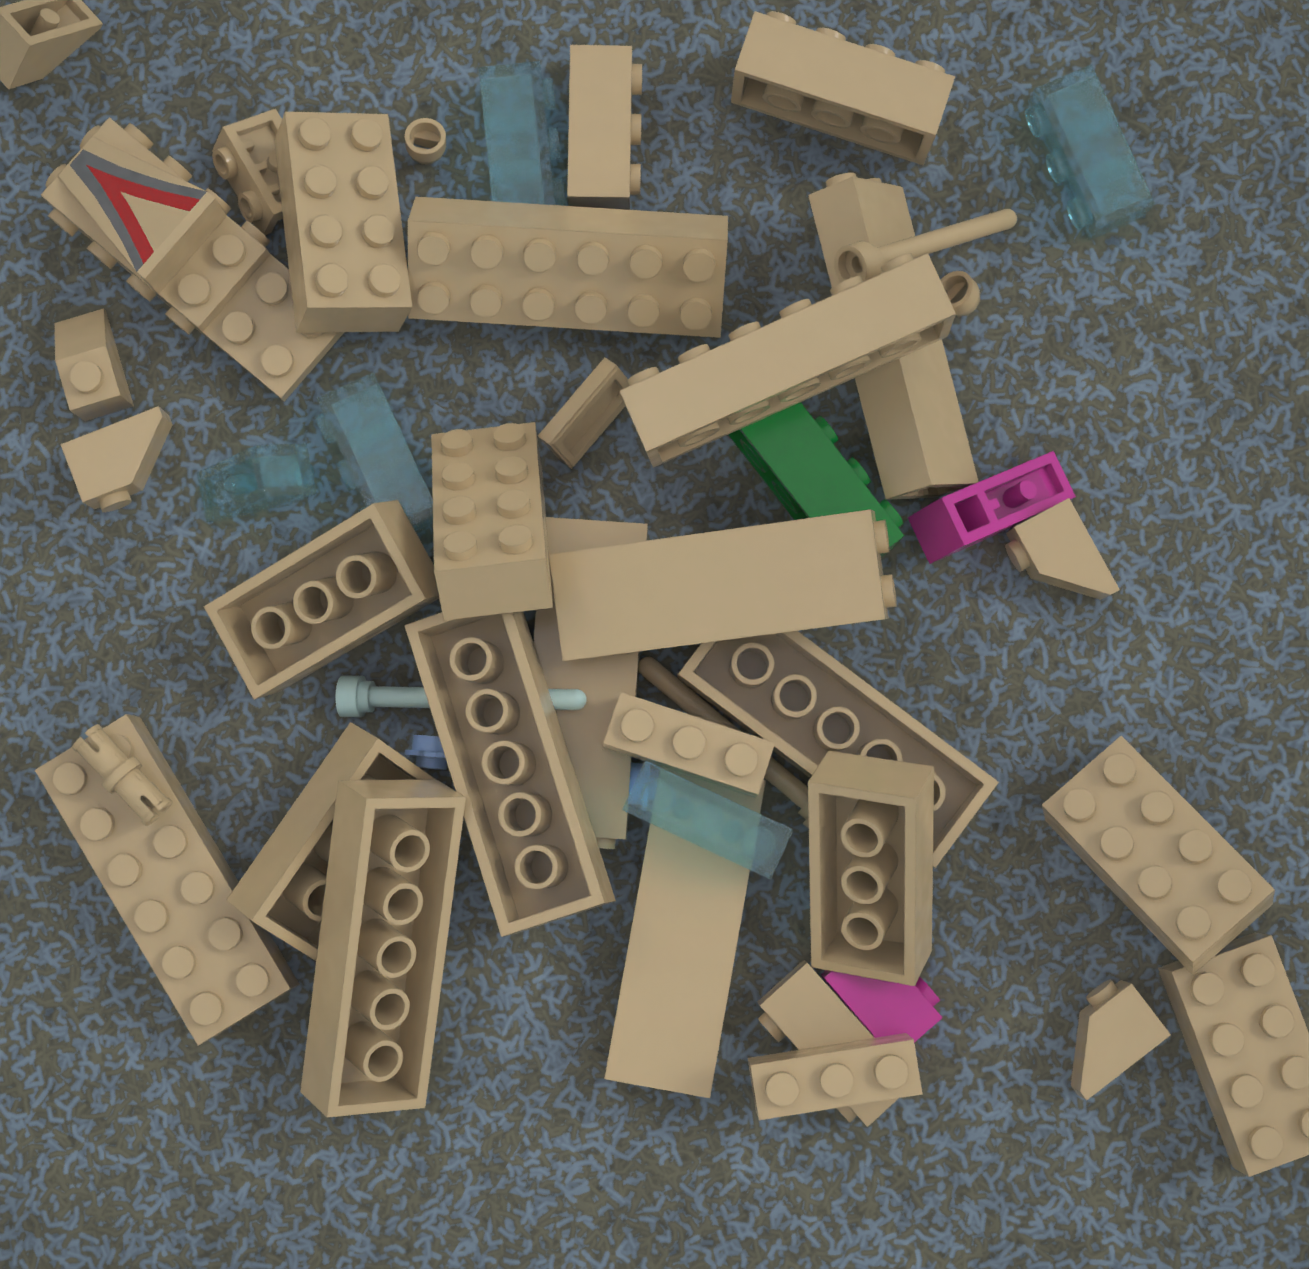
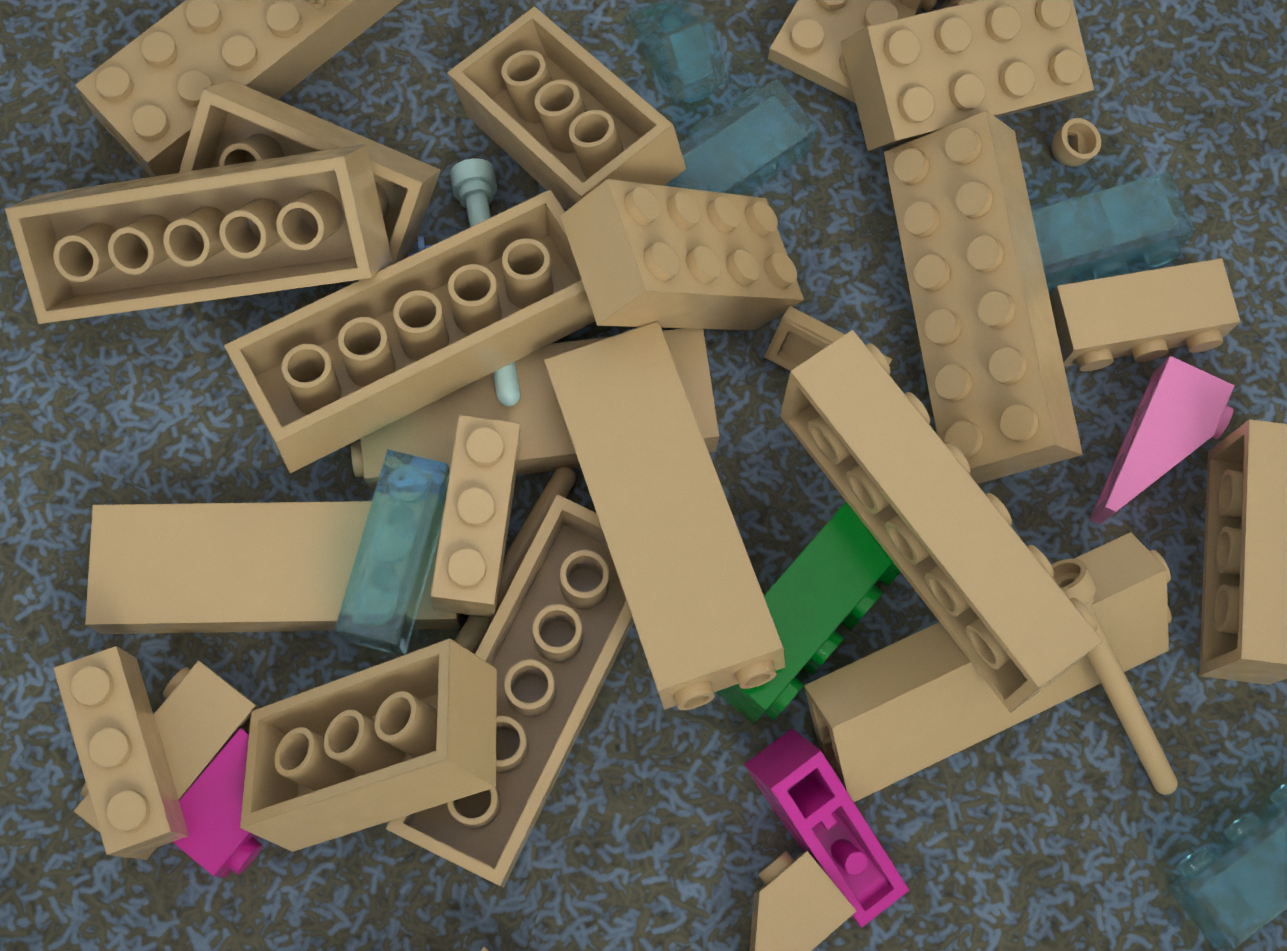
camera: 75 degrees right, 10 degrees down
(708, 131) = (1173, 420): none -> bright pink slope
(962, 292) = (1063, 739): tan hinge -> none

